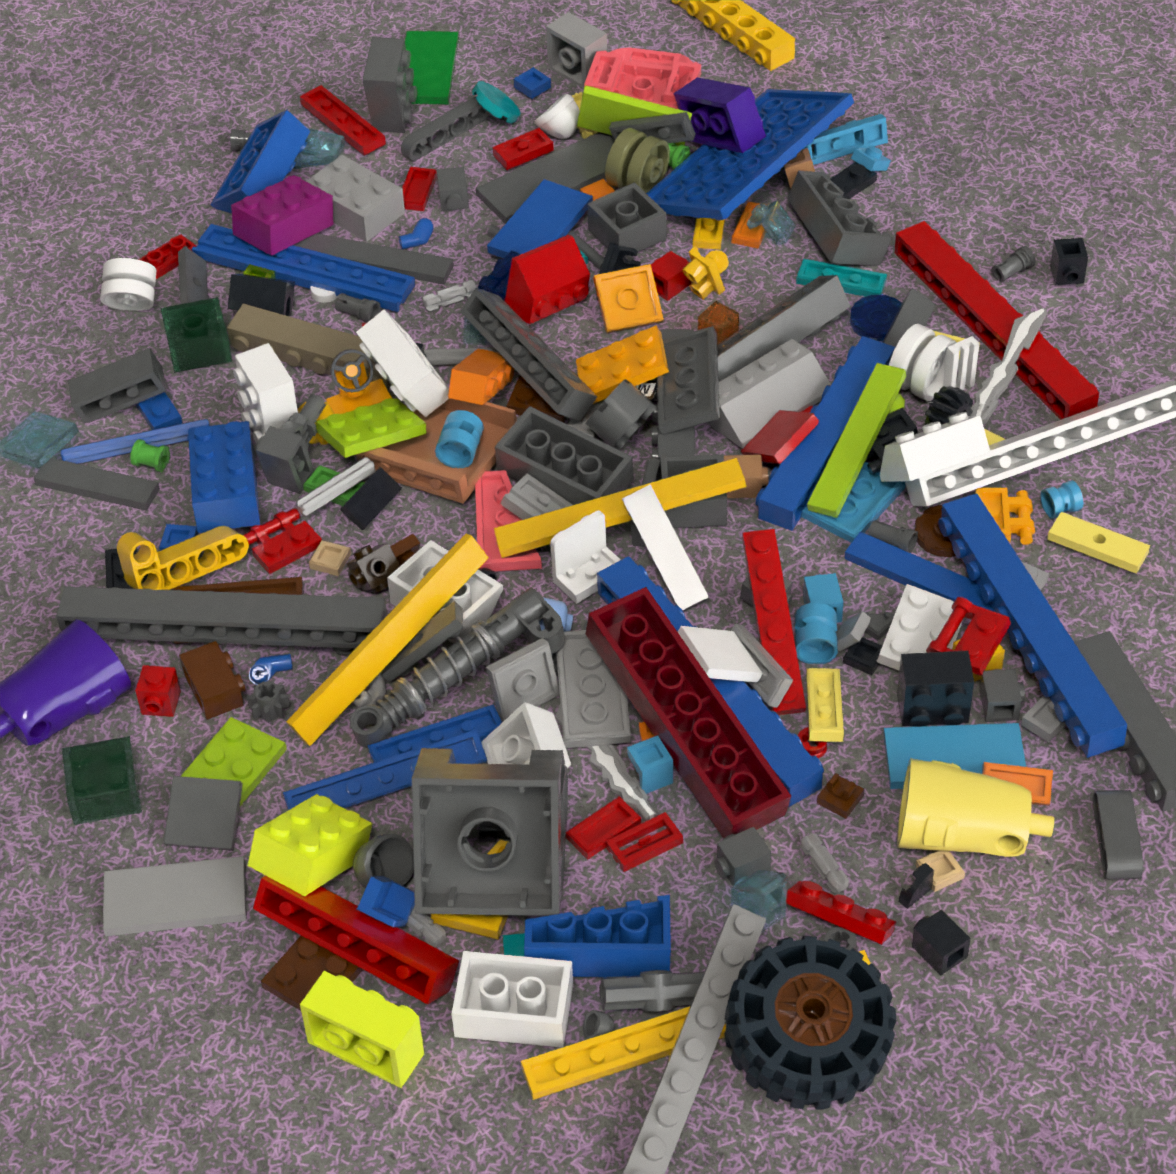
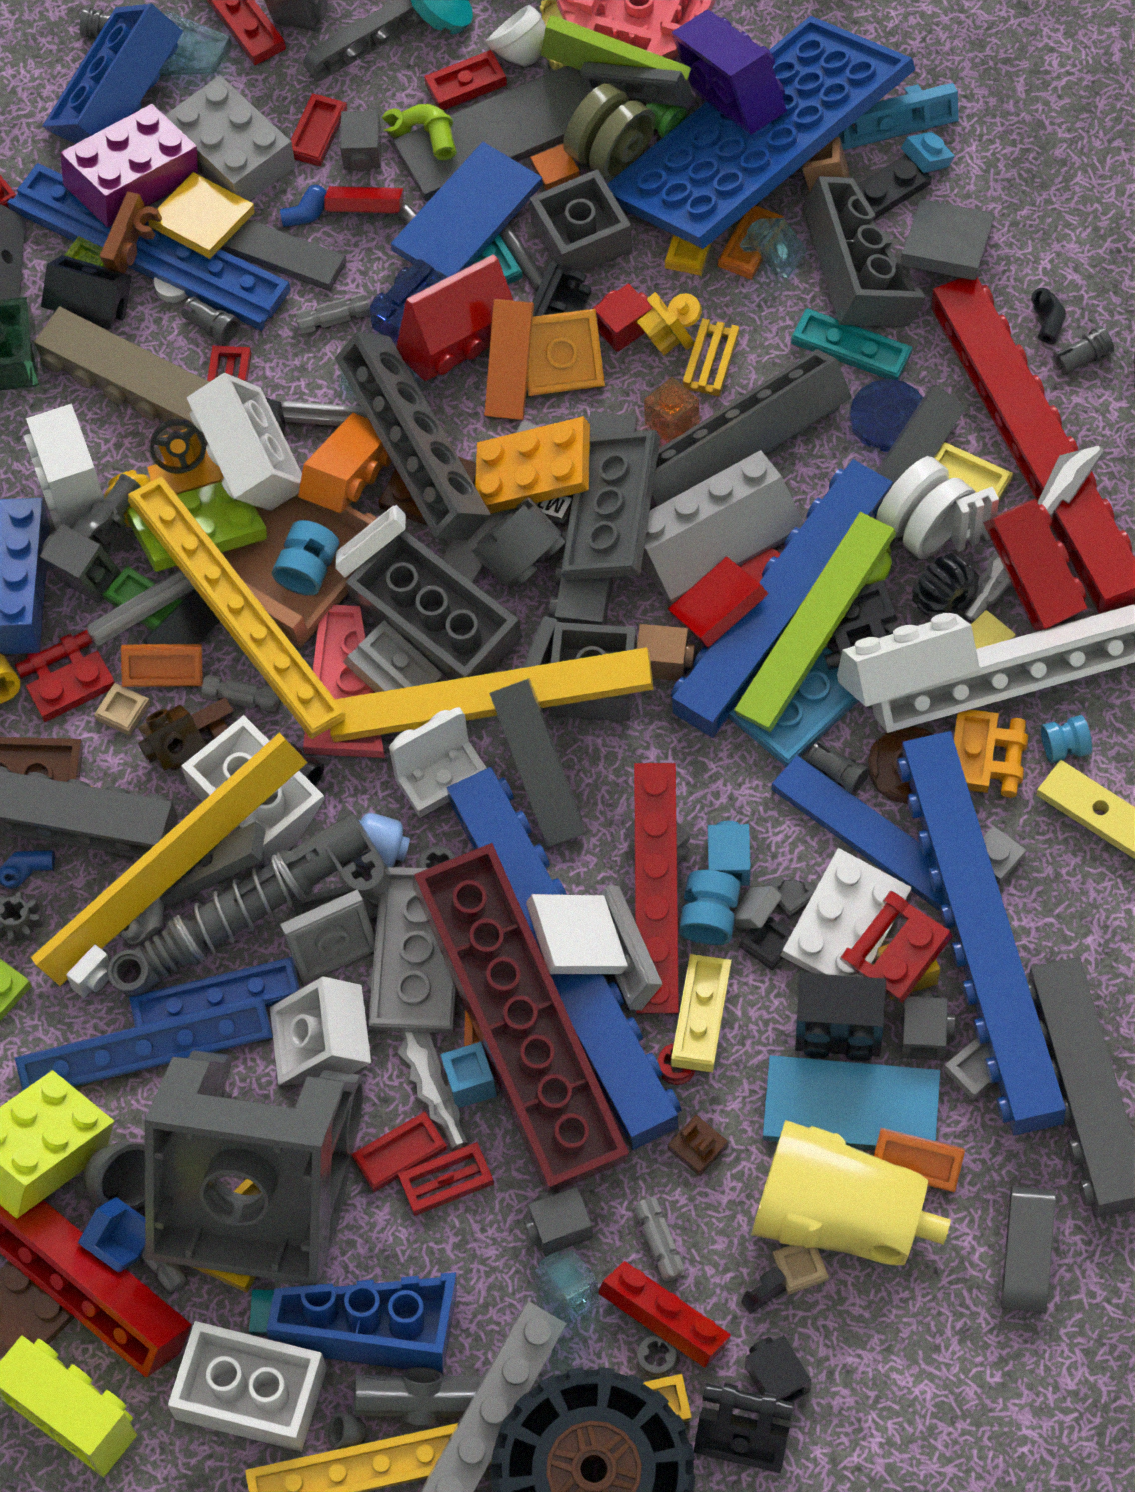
camera: 10 degrees right, 15 degrees up
(288, 249) = (121, 245): none -> dark orange plate
(333, 730) = (89, 972): none -> white plate
(341, 242) = (202, 215): none -> tile
(357, 523) = (161, 665): none -> orange tile
(414, 470) = (236, 607): none -> yellow tile
(443, 537) = (240, 693): none -> light grey axle
(461, 224) = (364, 199): none -> red tile
(504, 169) = (433, 119): none -> lime piece
(509, 418) = (370, 540): none -> white tile
(590, 303) = (509, 359): none -> orange tile
(741, 280) = (718, 331): none -> yellow tile
(899, 205) = (947, 239): none -> dark grey tile
(922, 990) = (743, 1438): none -> black plate
(982, 244) = (1050, 312): none -> black arm
(1013, 387) = (1036, 564): none -> red brick

